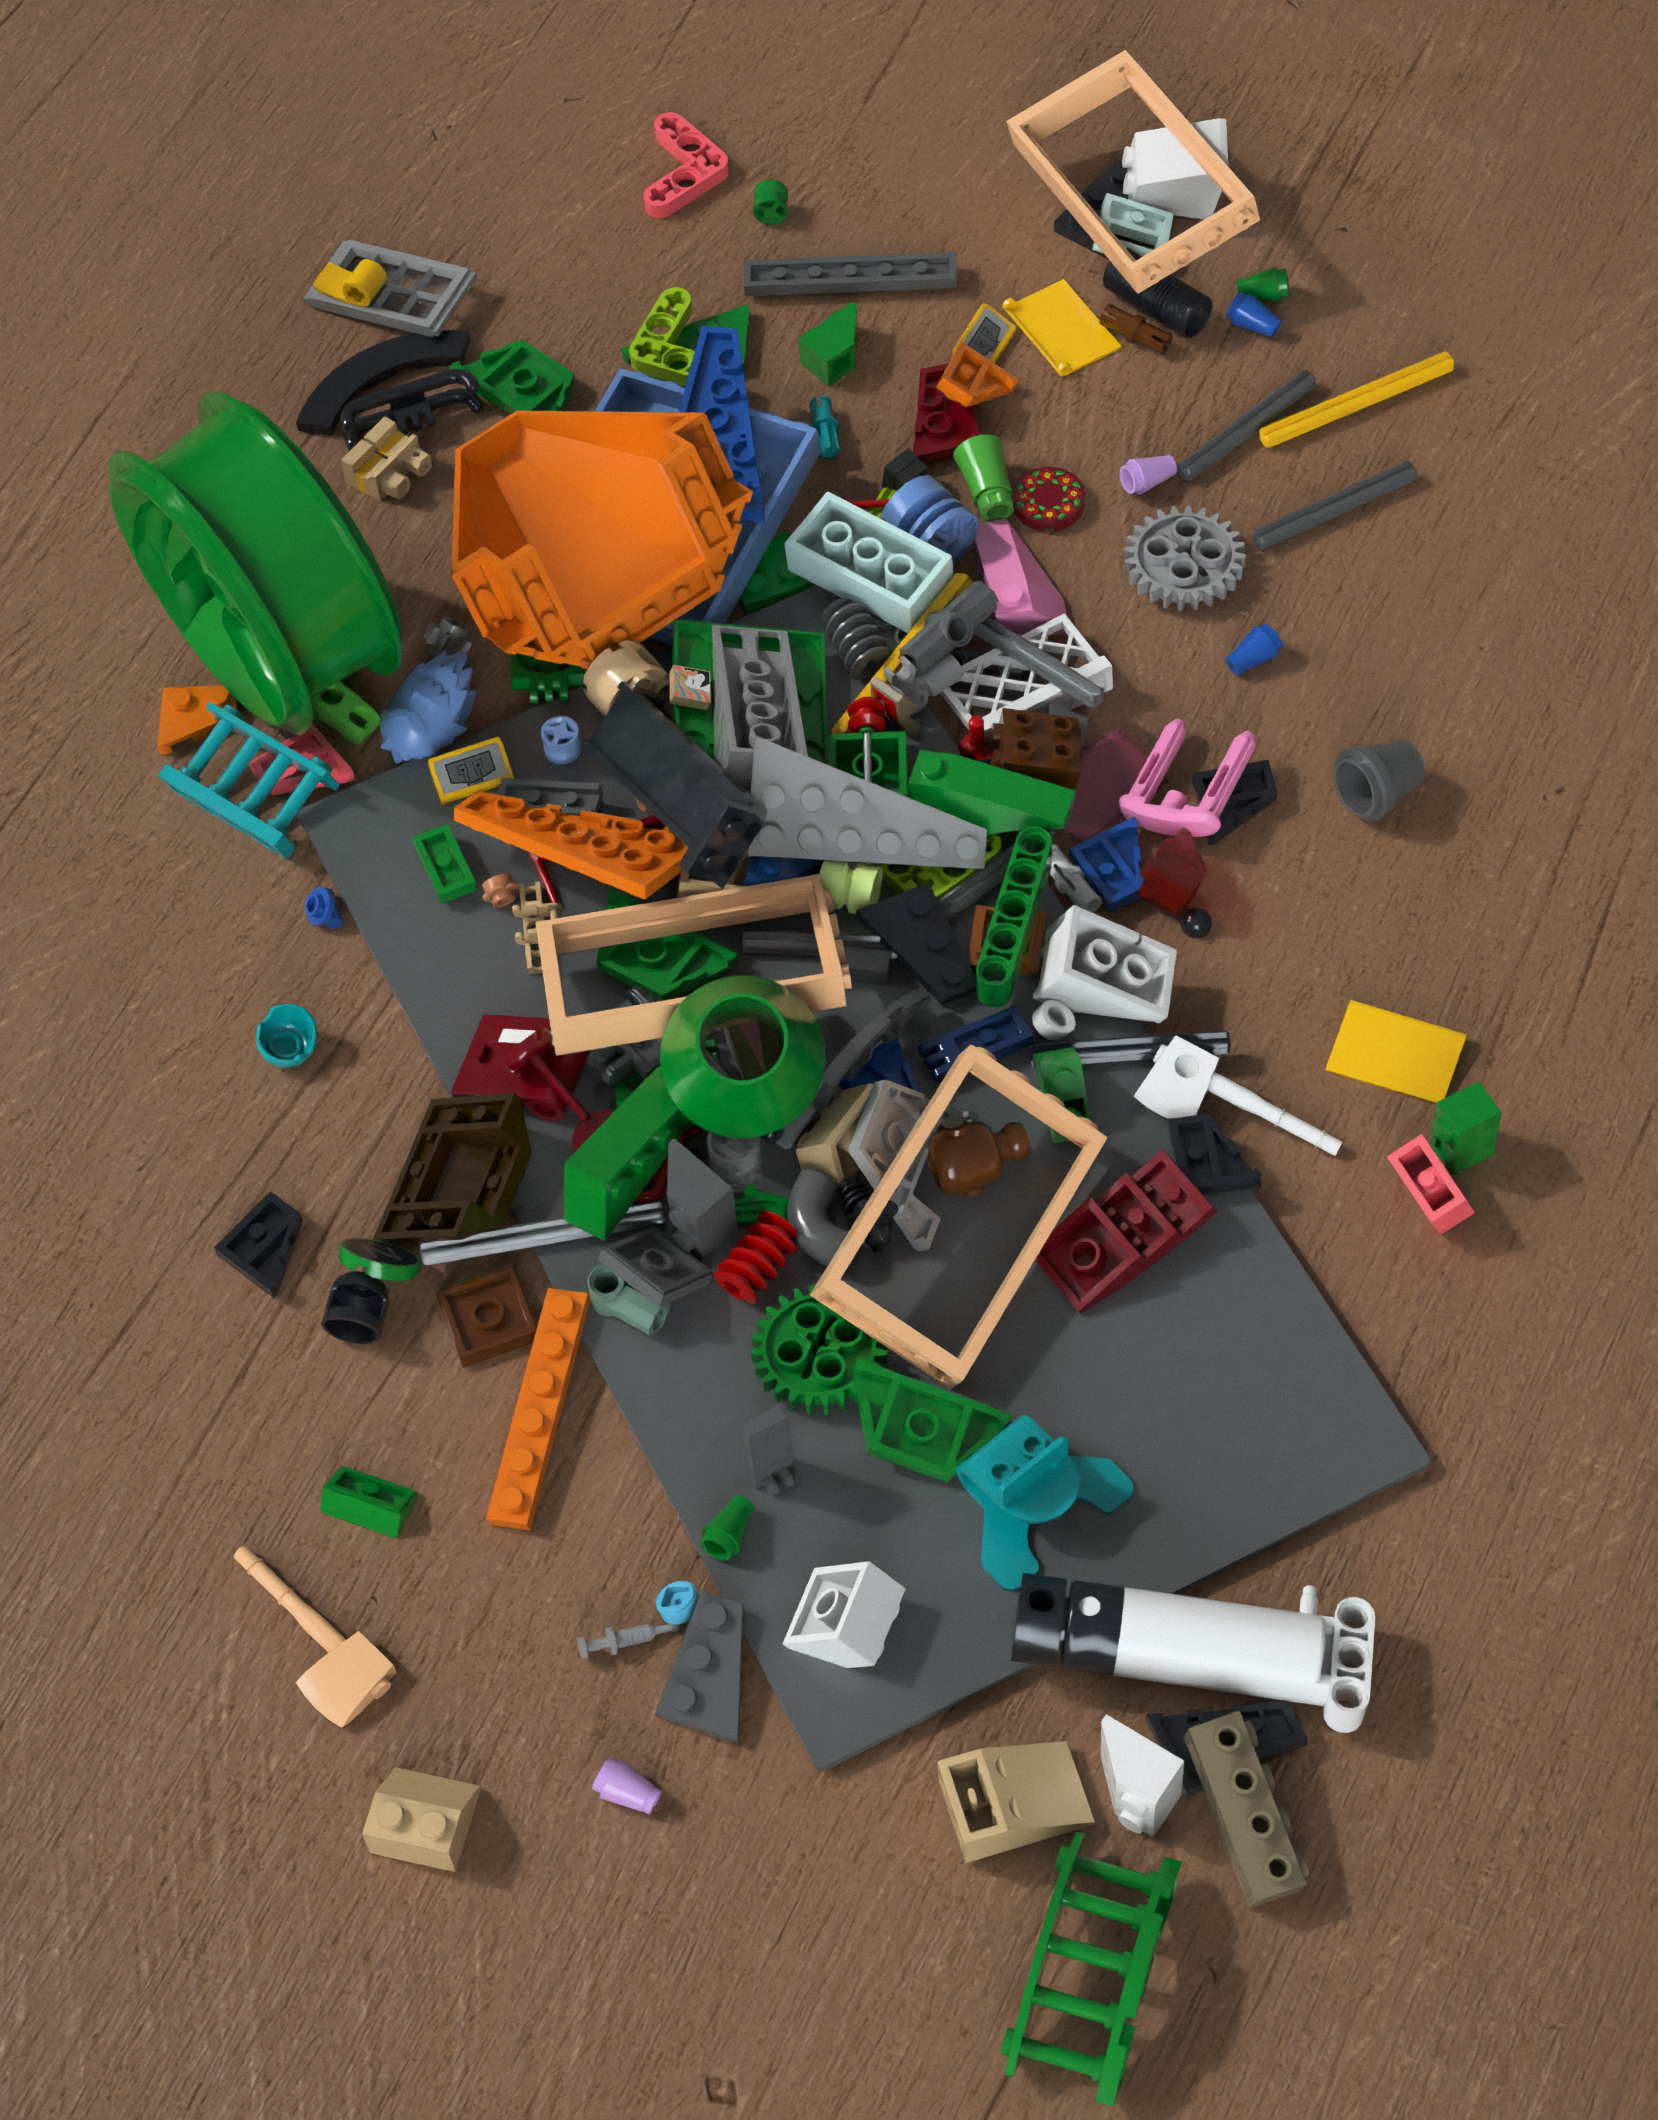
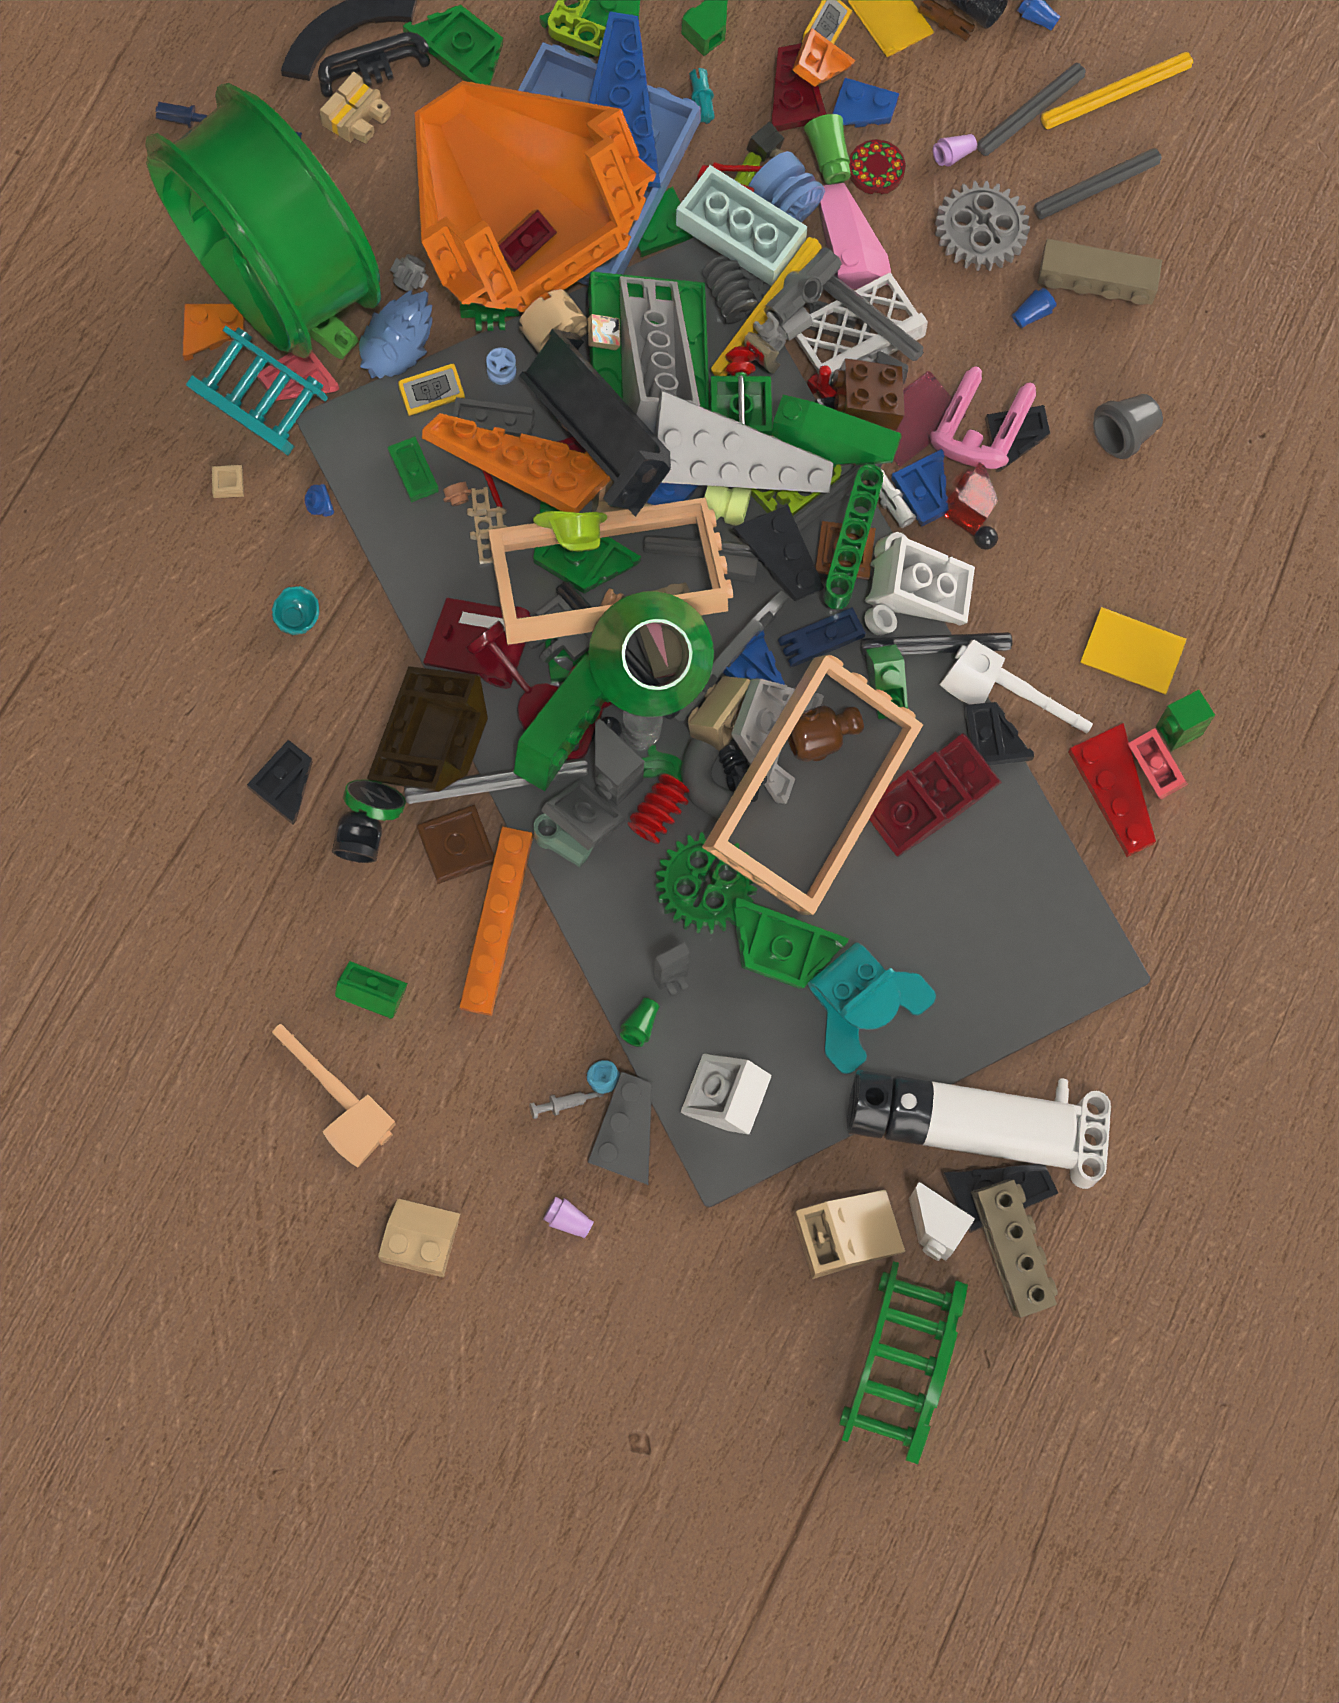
camera: 10 degrees left, 15 degrees up
(207, 890) = (227, 481): none -> tan tile
(593, 587) = (525, 239): none -> dark red slope
(642, 909) = (573, 529): none -> lime piece
(1034, 429) = (865, 104): none -> blue wing
(1337, 602) = (1099, 272): none -> dark tan brick
(1374, 1215) = (1115, 785): none -> red wing

